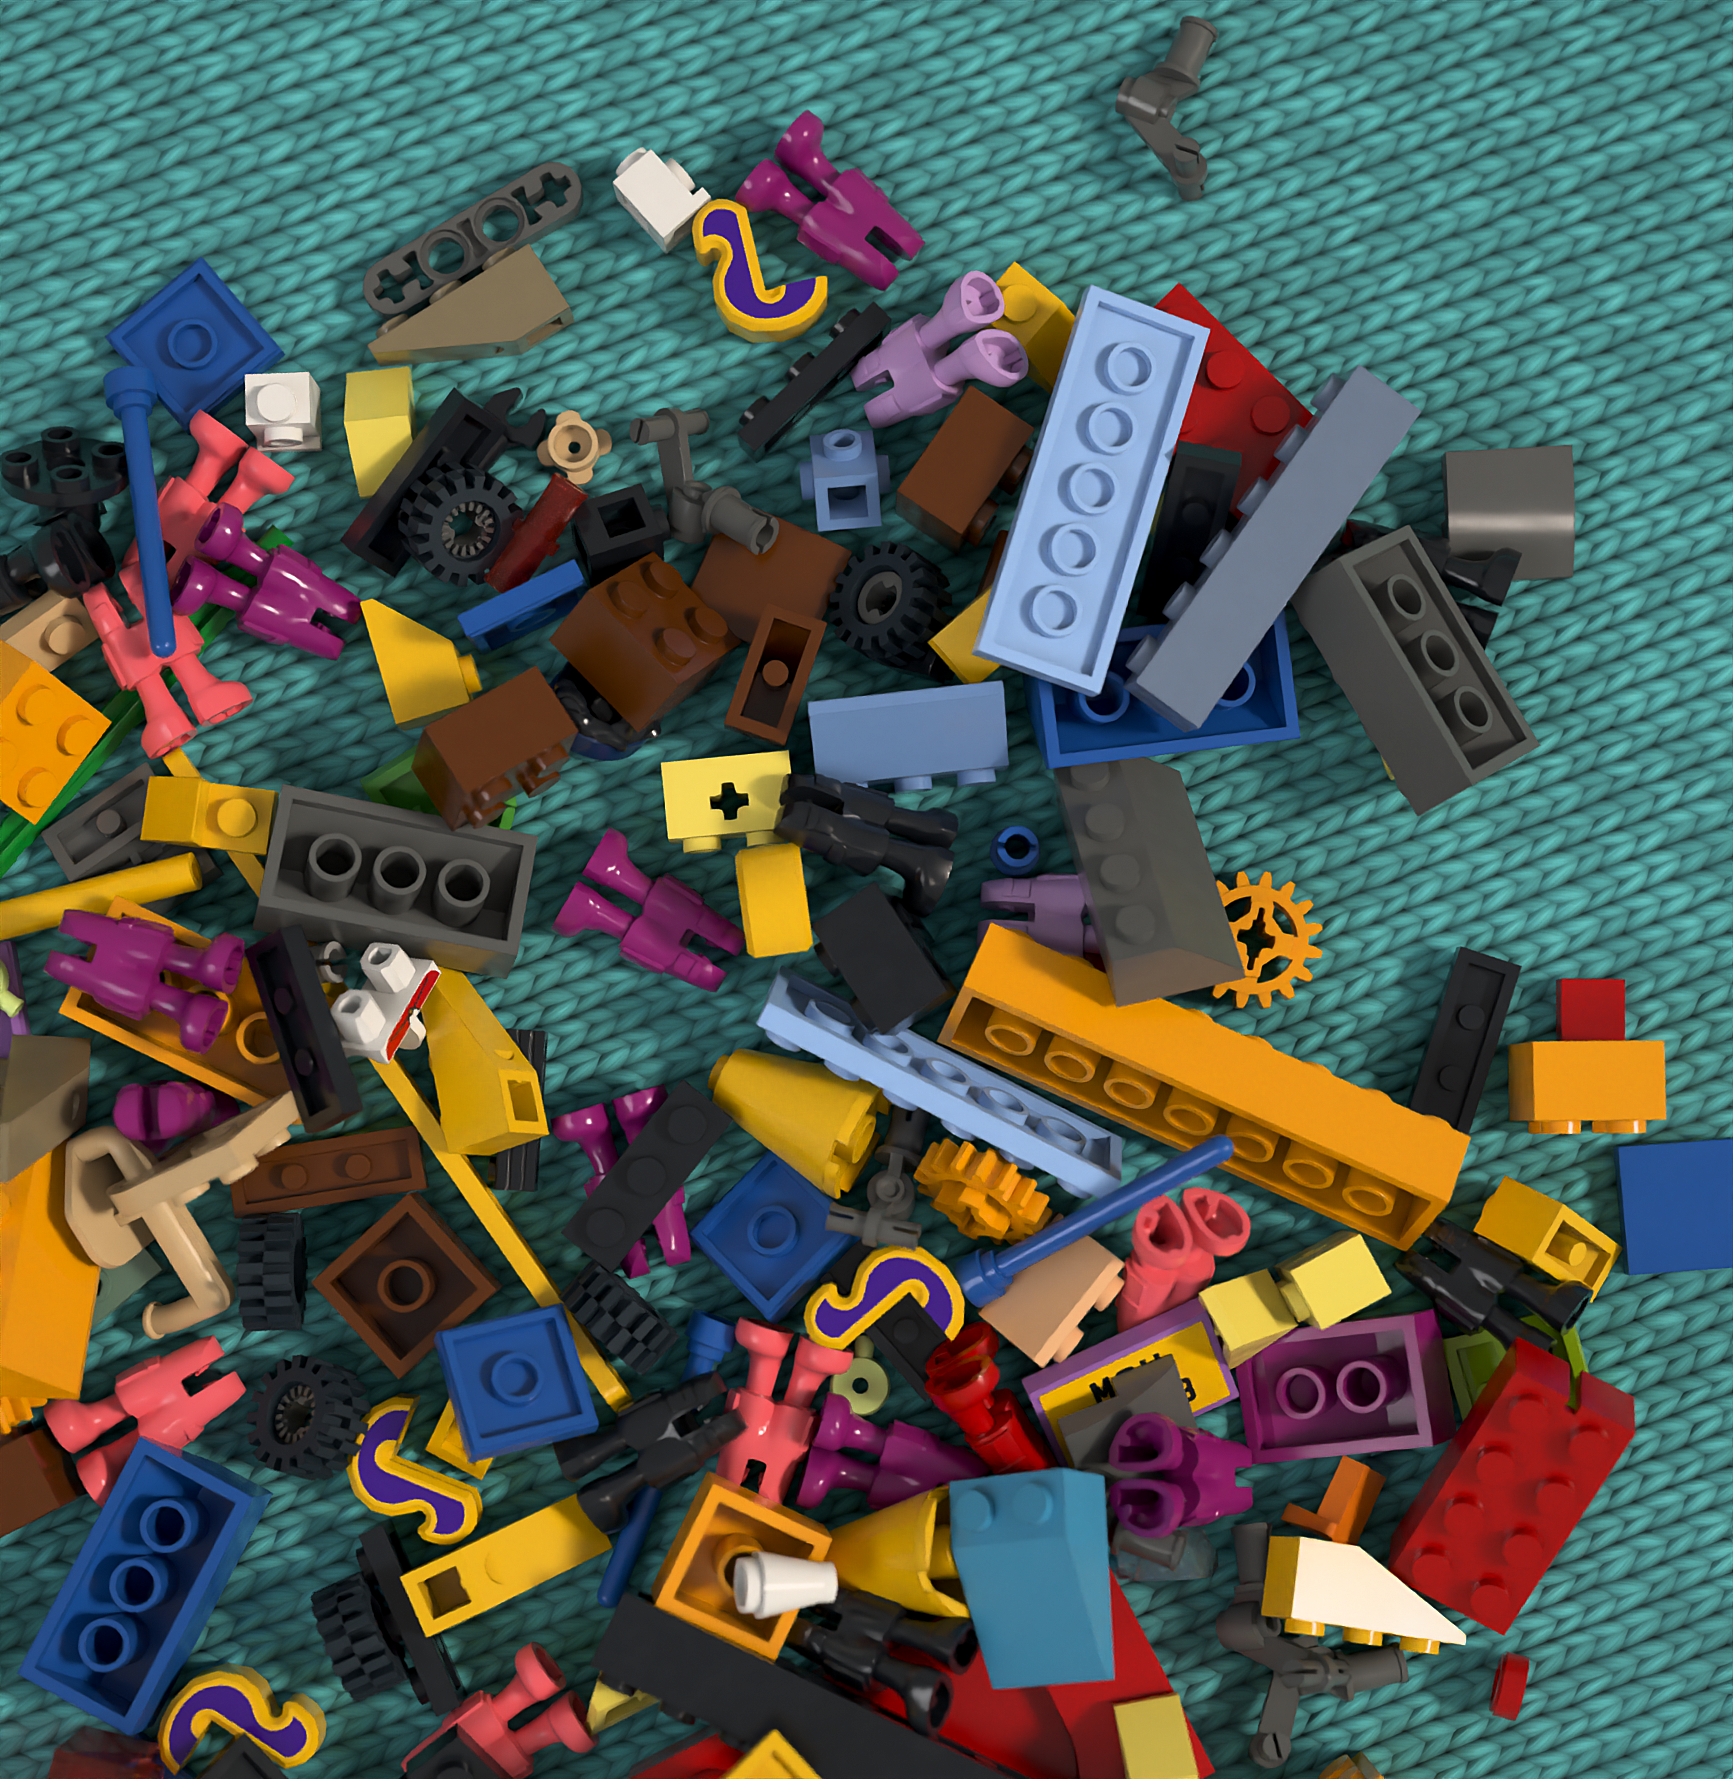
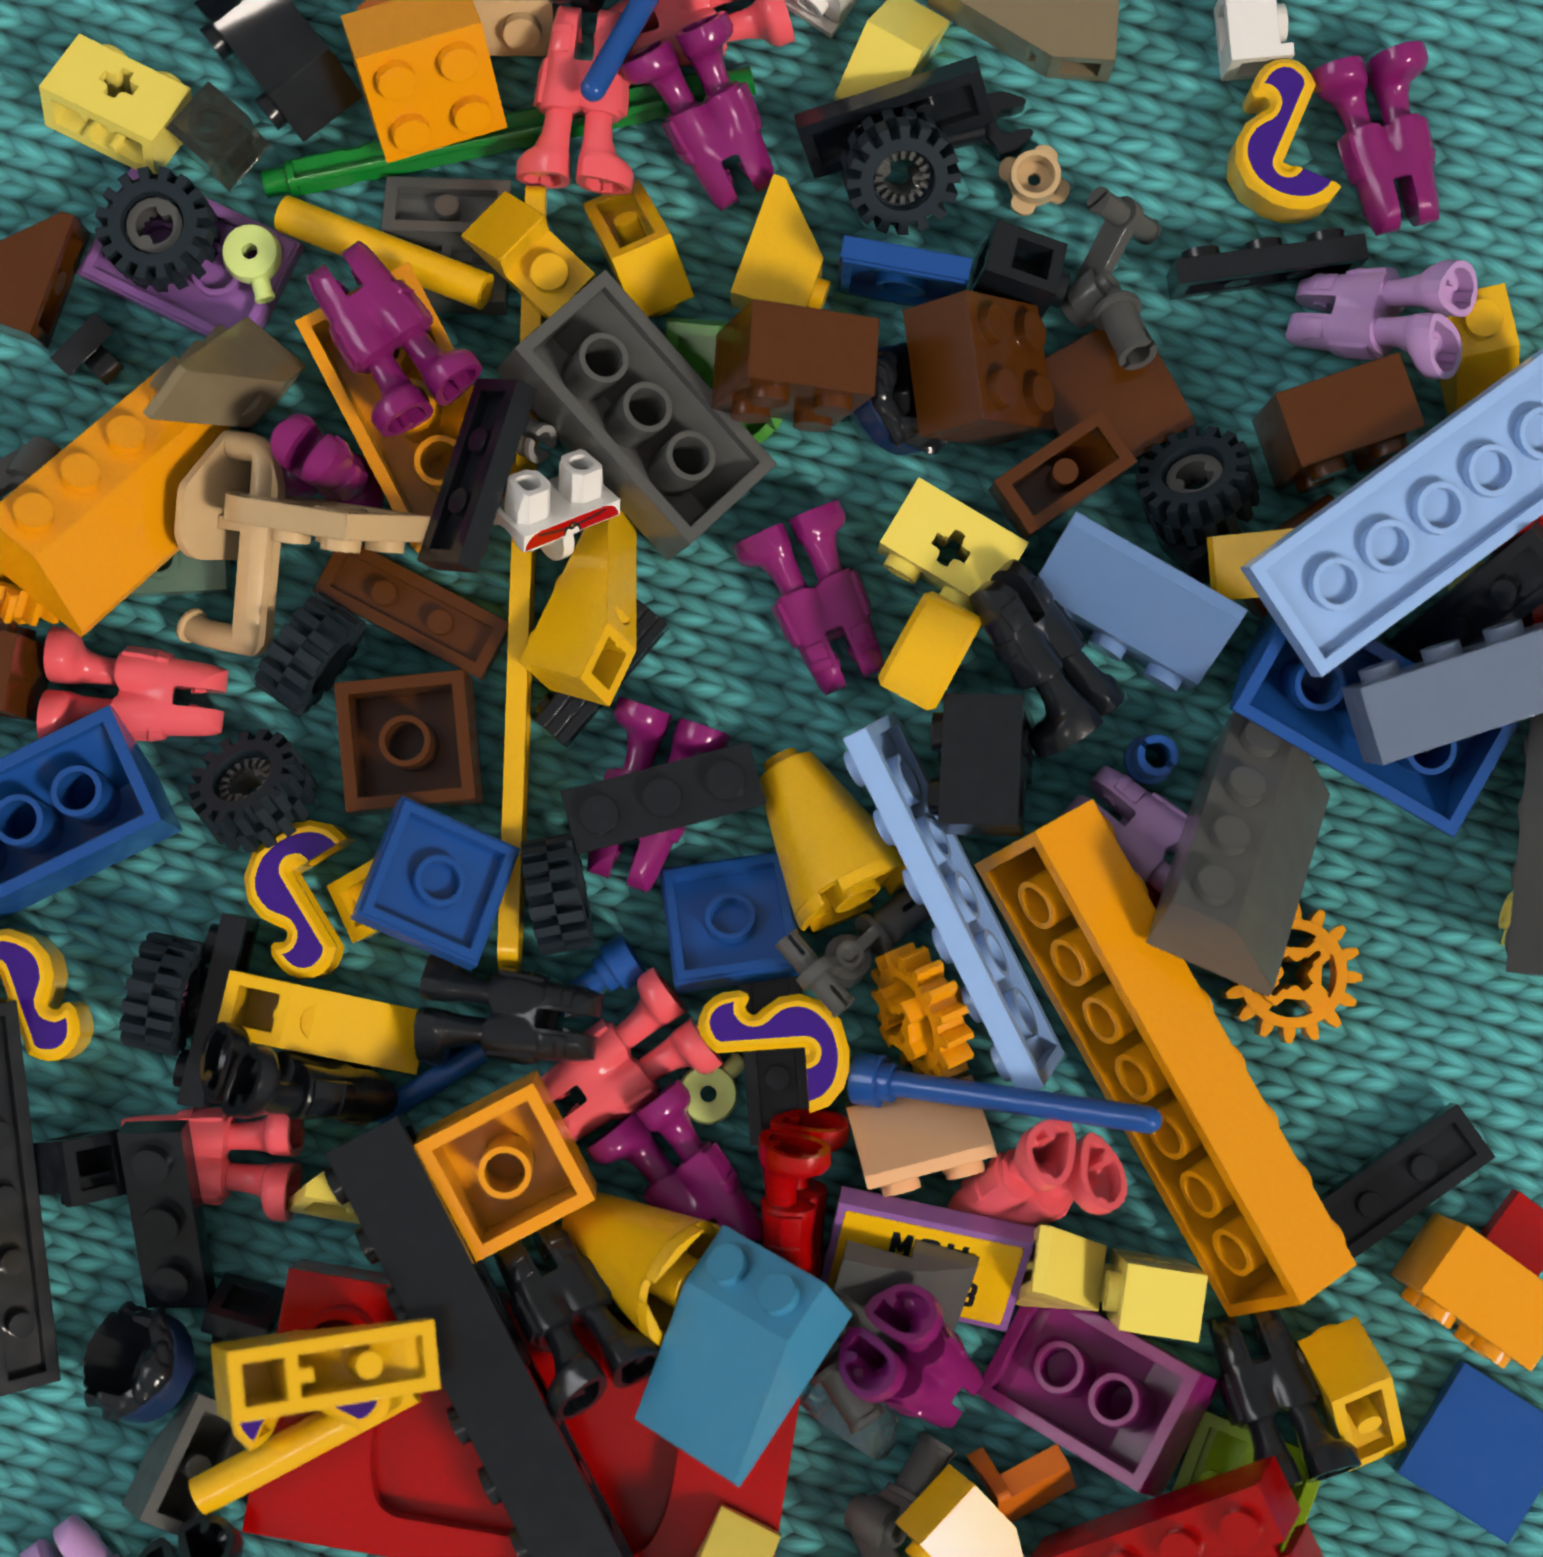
camera: 45 degrees right, 0 degrees up
(295, 743) = (639, 250): none -> yellow slope
(525, 1627) = (303, 1086): none -> black piece
(536, 534) = (956, 220): clear red pin -> none
(779, 1583) = (525, 1203): white cone -> none
(845, 479) = (1234, 360): medium blue brick -> none

